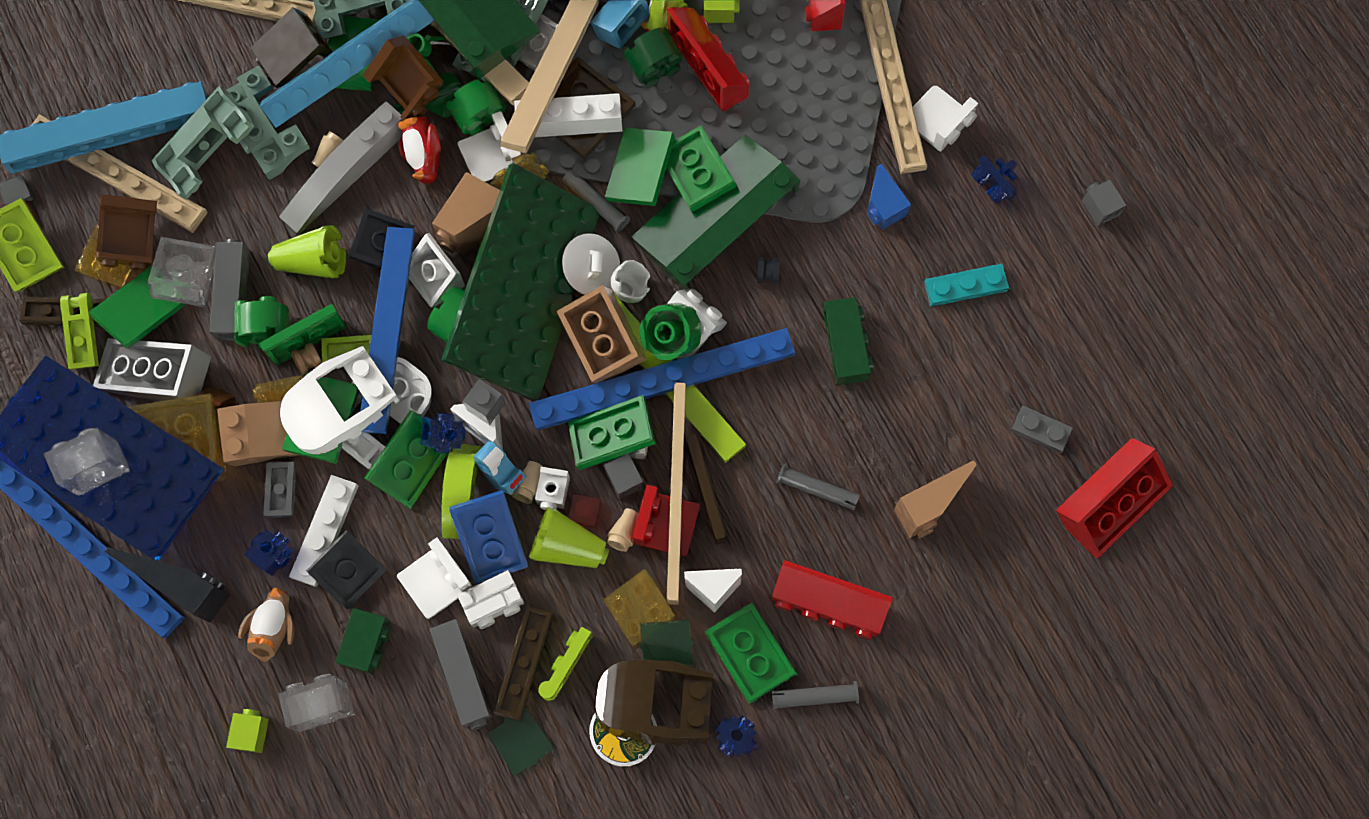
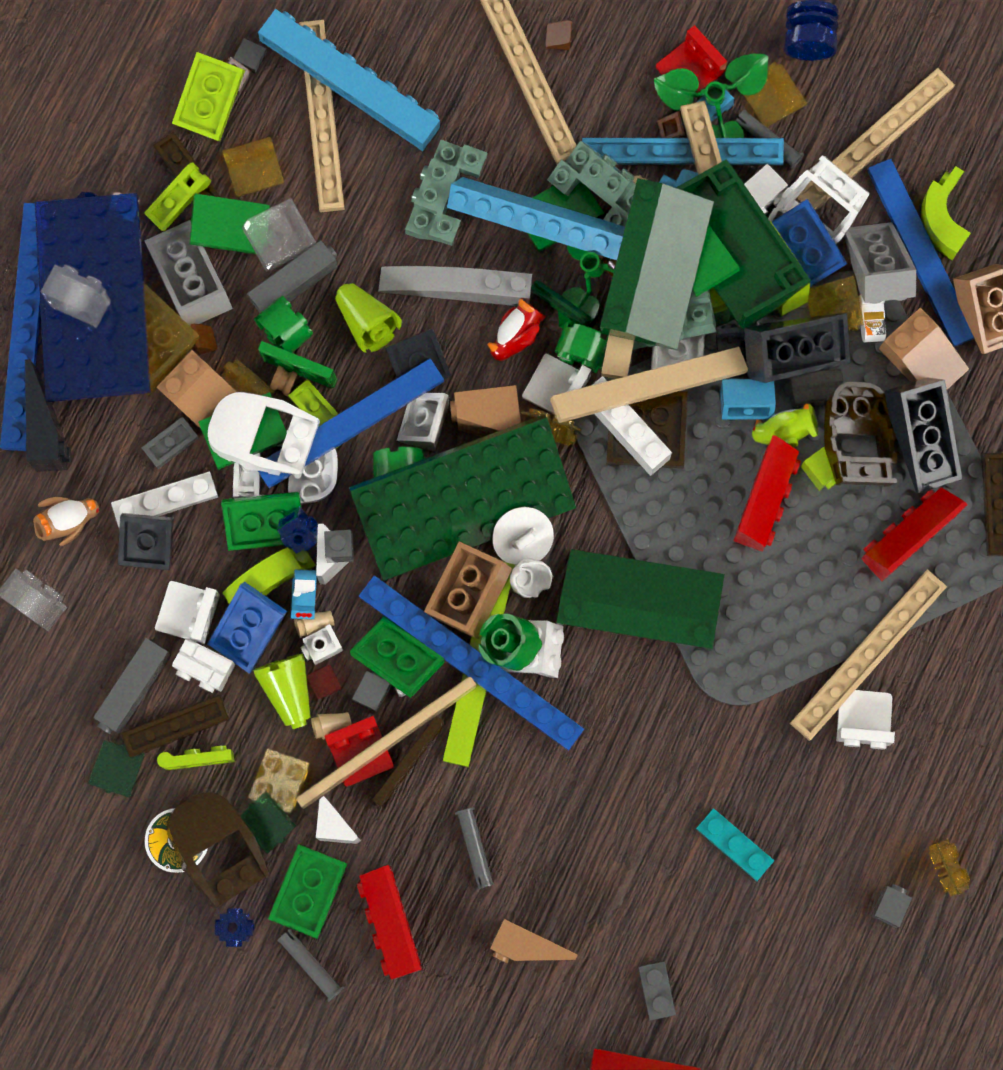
camera: 50 degrees right, 5 degrees up
(125, 232) = (276, 167): reddish brown panel -> none
(199, 138) = (392, 158): sand green bracket -> none
(269, 551) = (117, 474): clear blue brick -> none
(289, 47) = (520, 164): panel -> none
(326, 147) = (464, 259): tan cone -> none
(364, 641) = (103, 596): dark green brick -> none
(405, 76) = (560, 276): reddish brown panel -> none
(601, 205) = (580, 497): dark grey pin -> none
(640, 166) = (631, 512): tile -> none
(654, 56) = (731, 452): dark green brick -> none
(698, 169) = (663, 558): green tile -> none
(768, 270) = (624, 678): black wheel -> none
(847, 341) = (612, 783): dark green brick -> none
(886, 200) = (756, 727): blue slope -> none
(987, 170) = (847, 791): clear blue hips -> none
(1116, 136) = (958, 877): none -> clear yellow hinge

